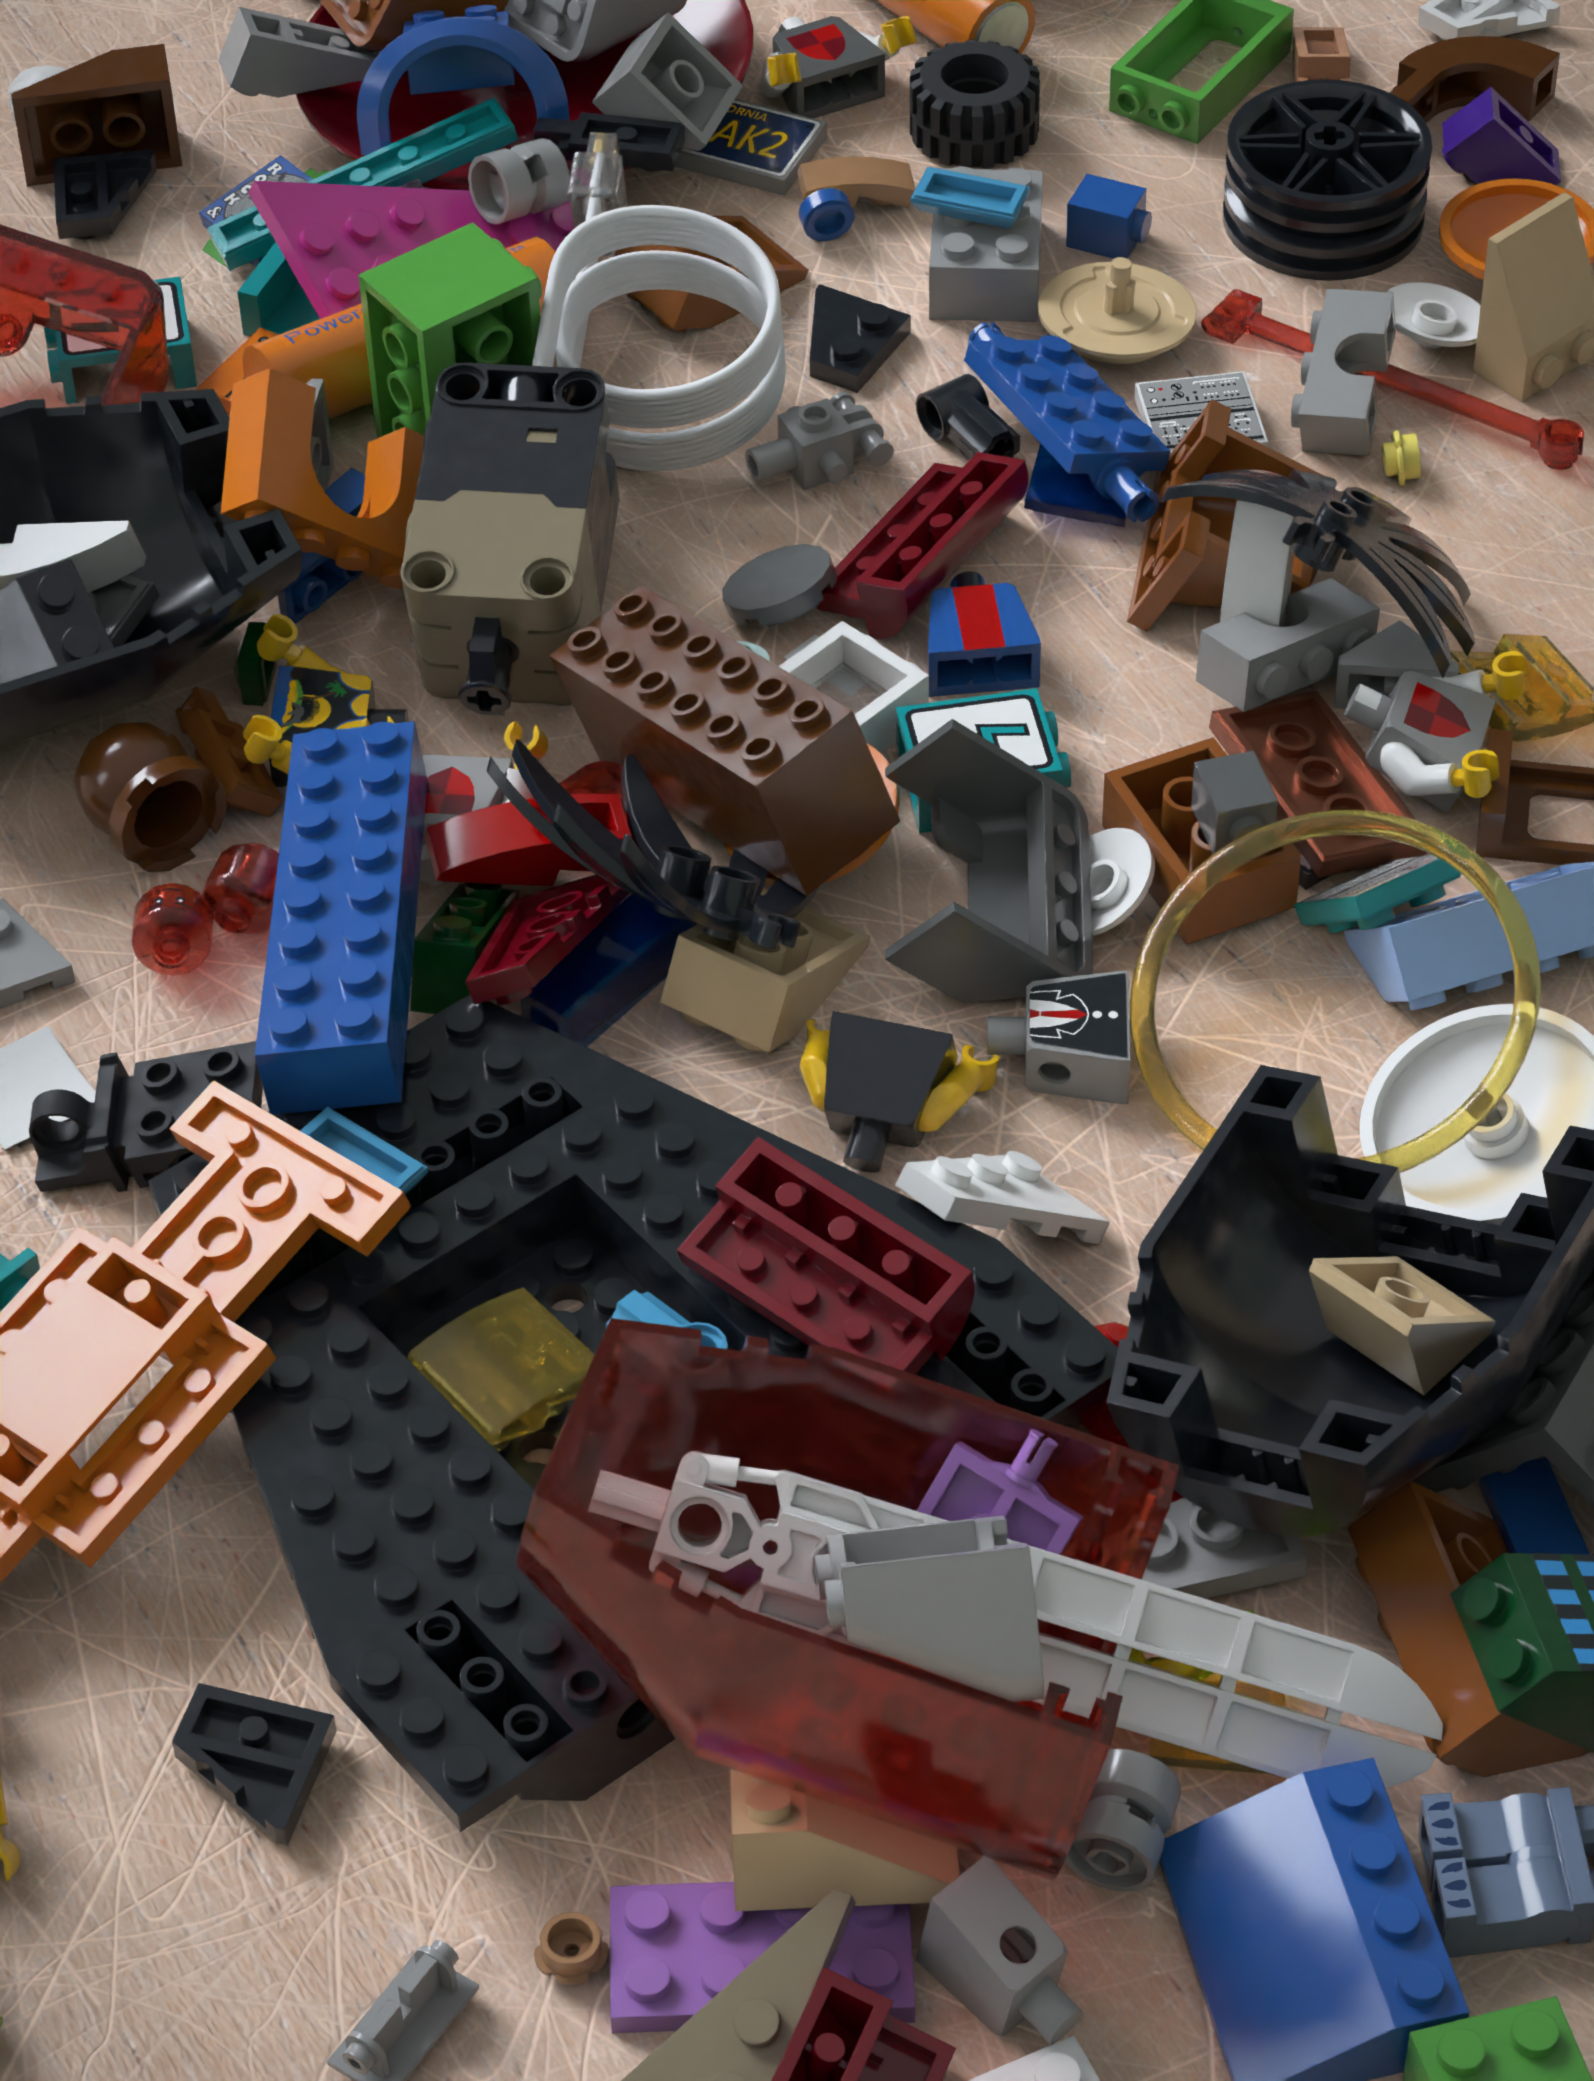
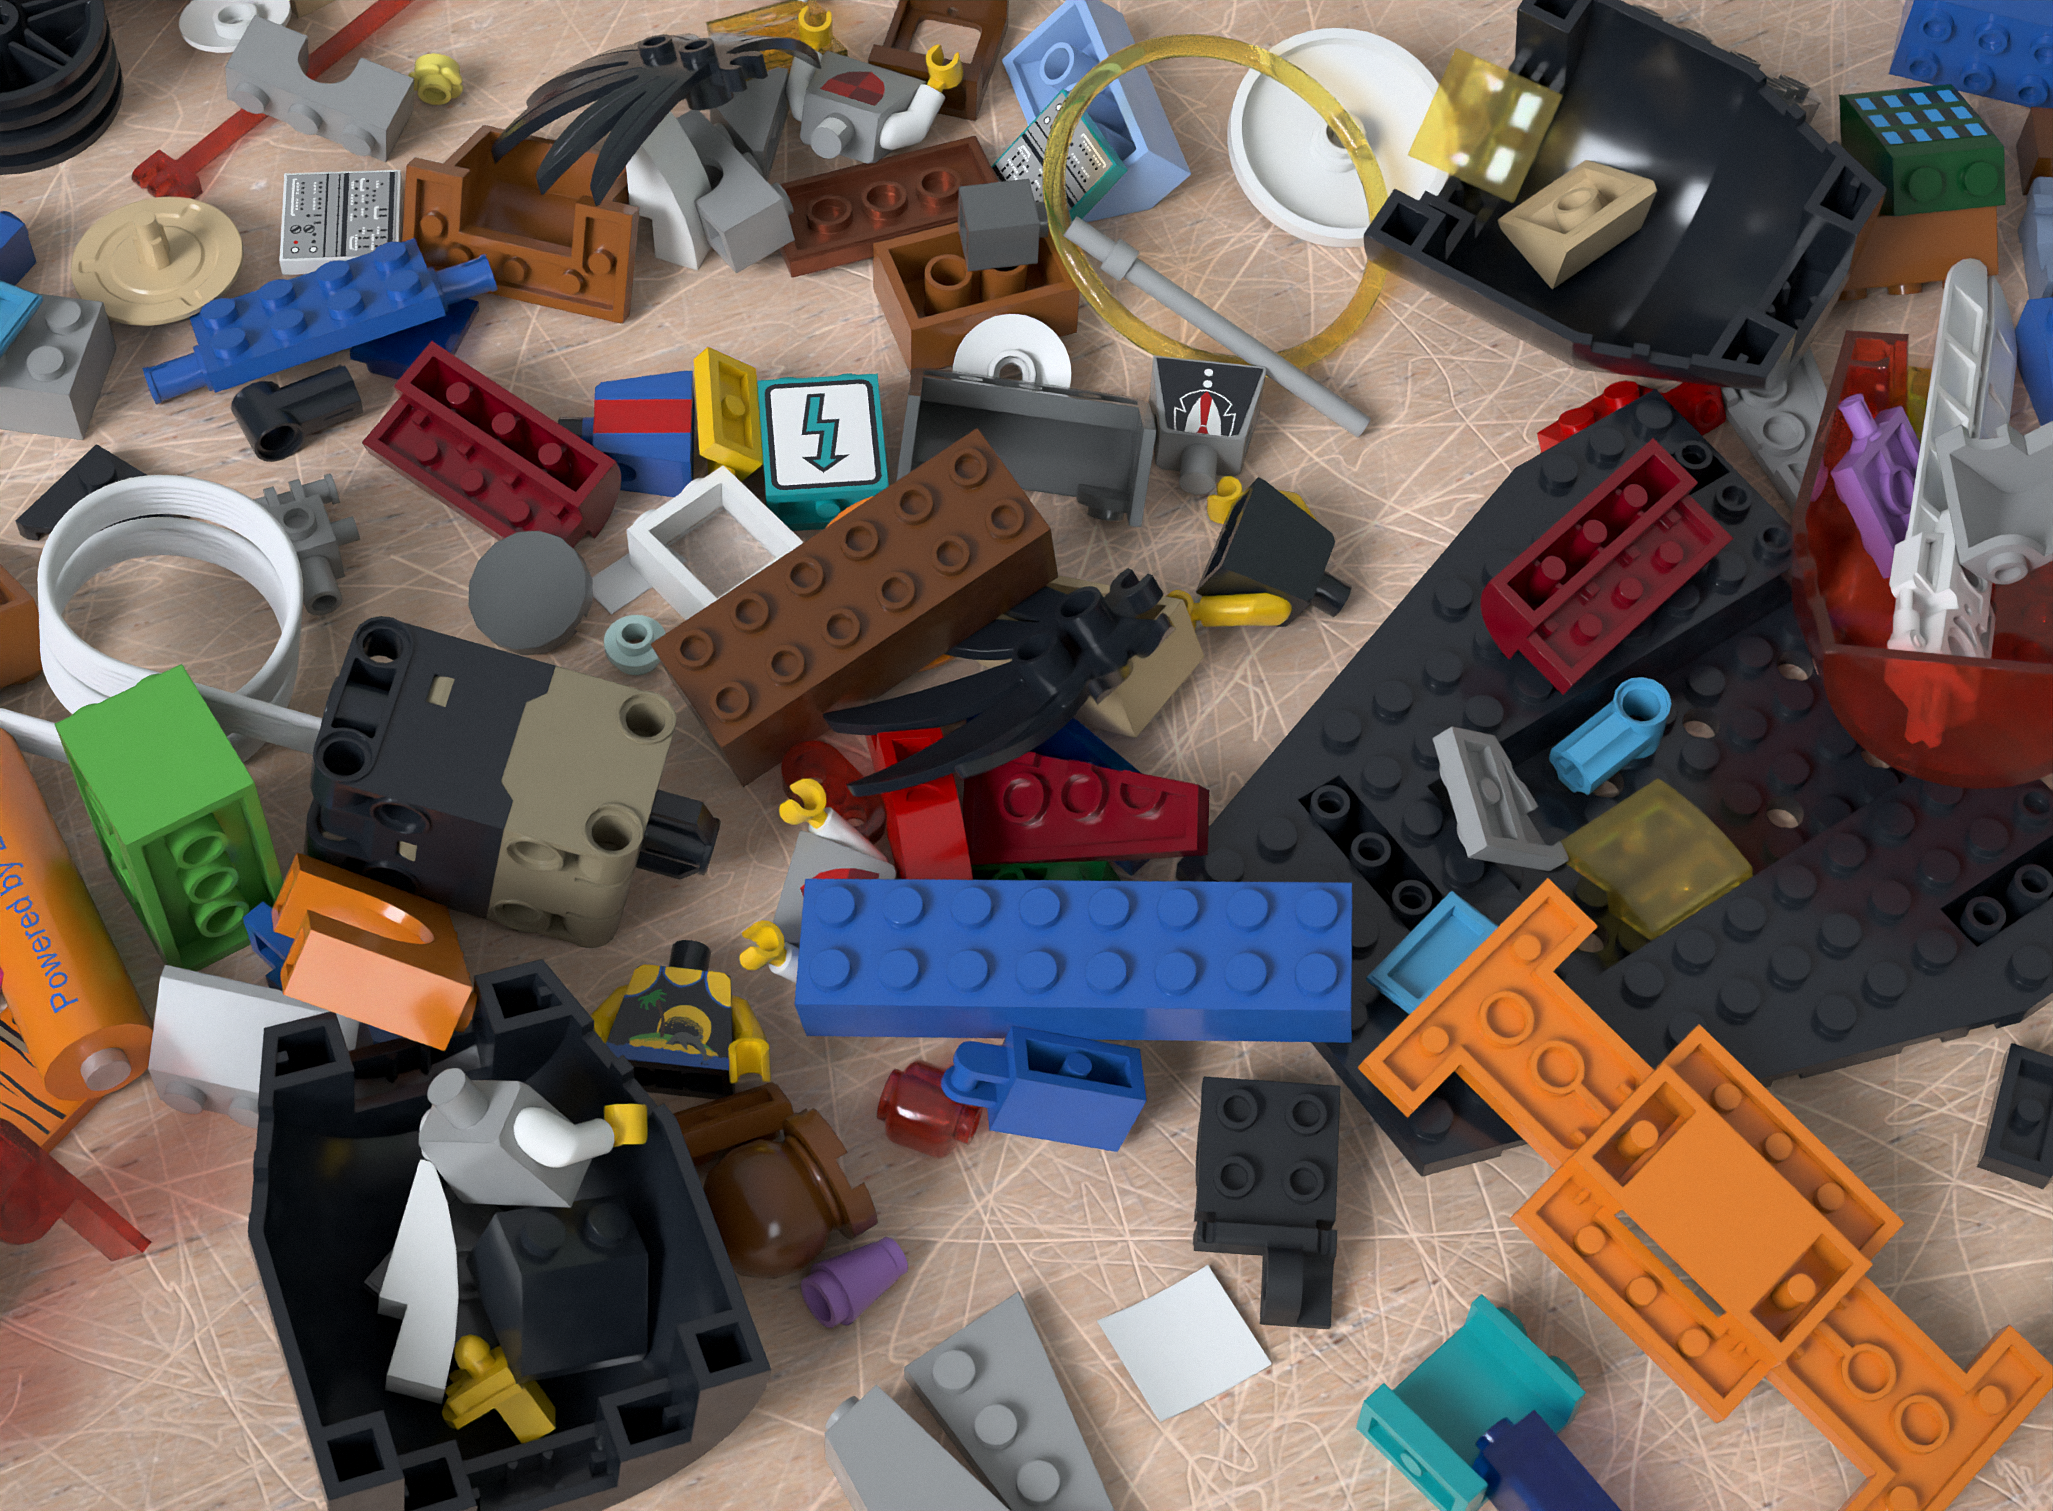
camera: 90 degrees left, 10 degrees up
(81, 857) = (852, 1281): none -> medium lavender cone
(132, 553) = (512, 1145): none -> light grey torso
(172, 923) = (984, 1183): clear red head -> none
(242, 939) = (1051, 1087): none -> blue brick
(537, 1204) = (1491, 802): none -> light grey wing
(992, 666) = (728, 413): none -> yellow panel
(997, 1190) = (1423, 482): white wing -> none
(1202, 900) = (1121, 261): none -> light grey bar
(1485, 1193) = (1484, 125): none -> clear yellow slope

